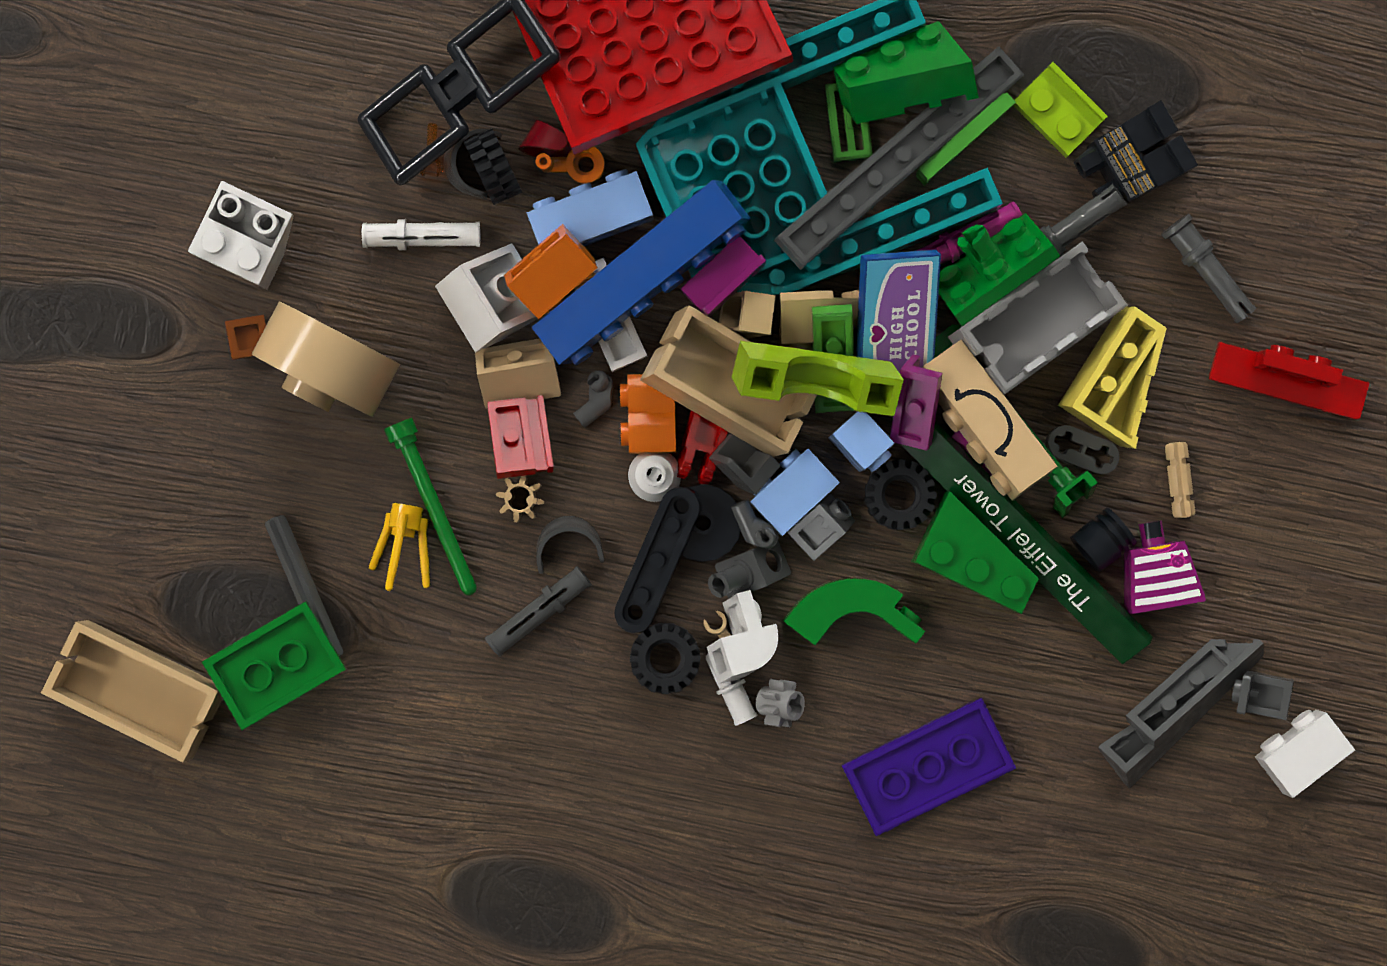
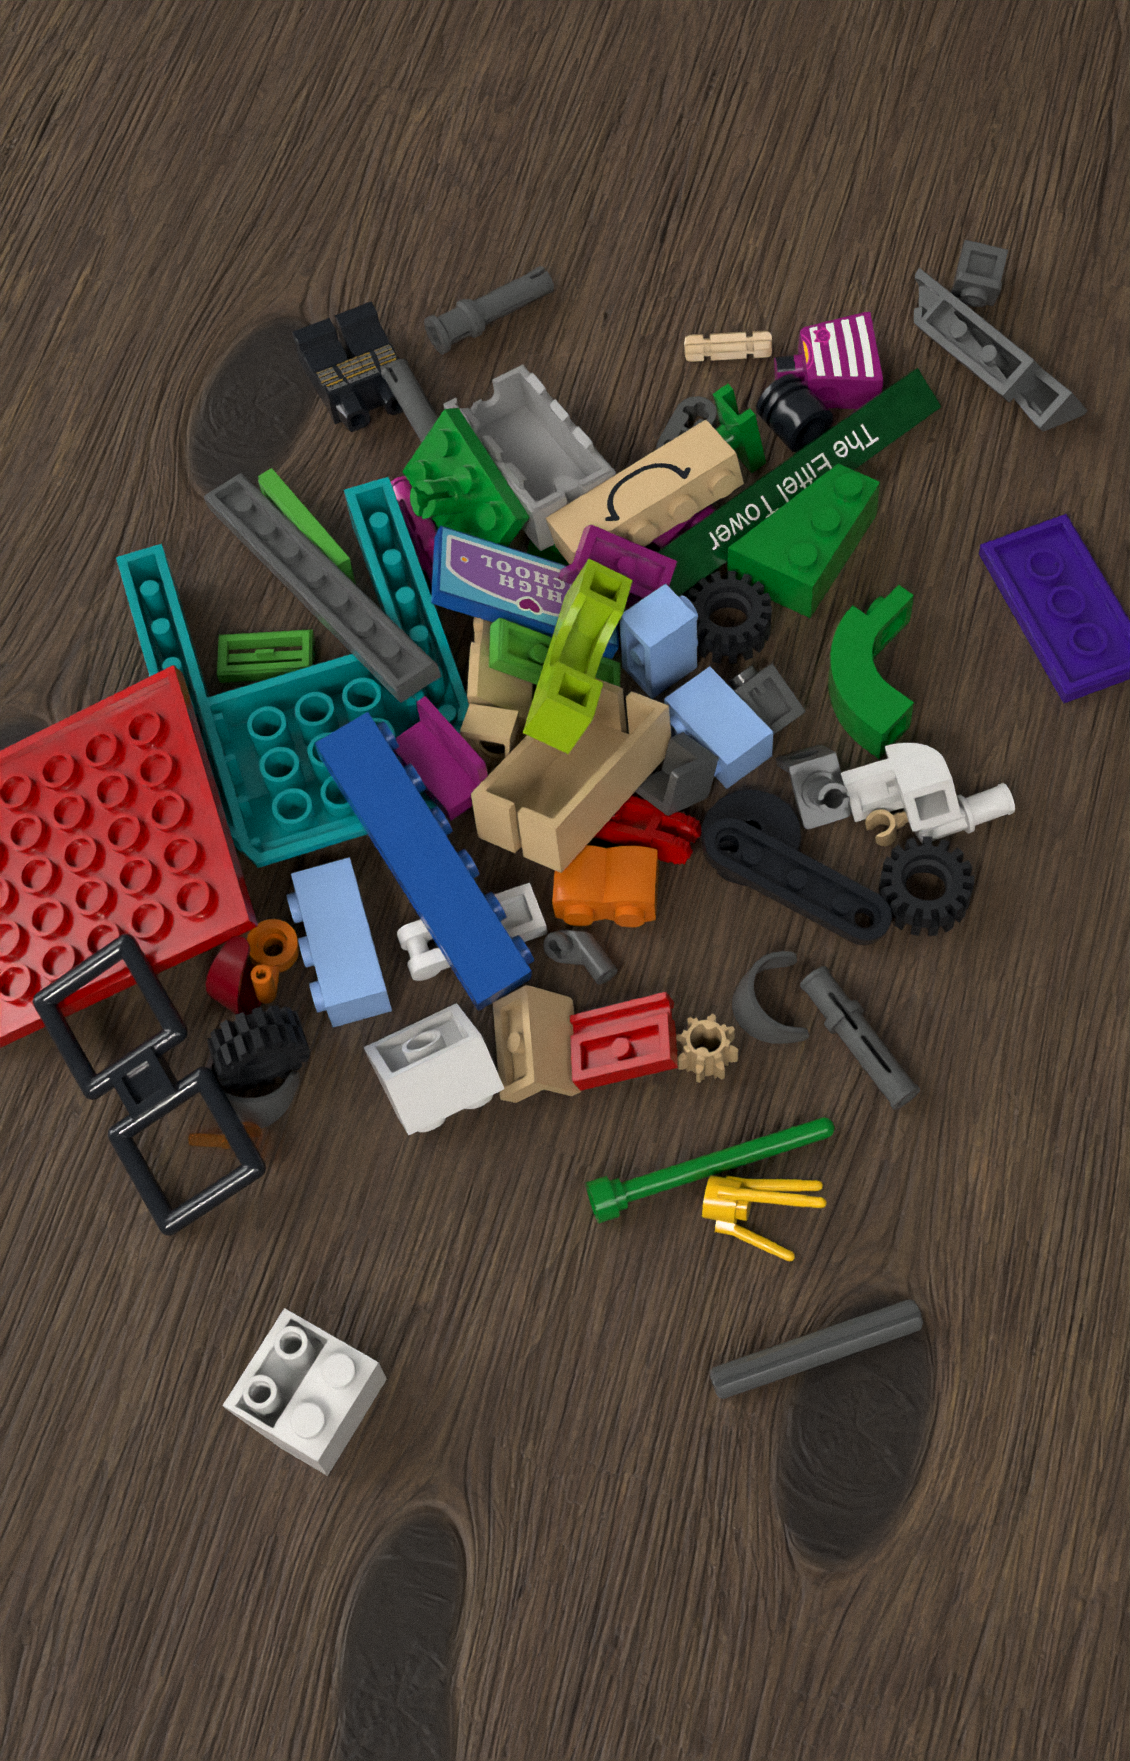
camera: 80 degrees left, 25 degrees down
(133, 690) = (963, 1598): tan piece -> none
(244, 335) = (451, 1392): dark orange plate -> none
(274, 665) = (930, 1376): green plate -> none
(324, 362) = (494, 1264): tan piece -> none
(420, 234) = (334, 1176): white pin -> none
(551, 272) = (407, 973): orange brick -> none
(647, 485) = (686, 890): white cone -> none
(752, 528) = (762, 770): dark grey arm -> none
(780, 703) = (986, 753): light grey gear -> none
(904, 74) = (218, 572): green wedge -> none
(1059, 110) = (288, 441): lime plate -> none
(1116, 377) = (607, 391): light yellow wedge -> none
(1290, 378) = (618, 240): red bracket -> none
(1303, 752) = (1046, 240): white brick -> none

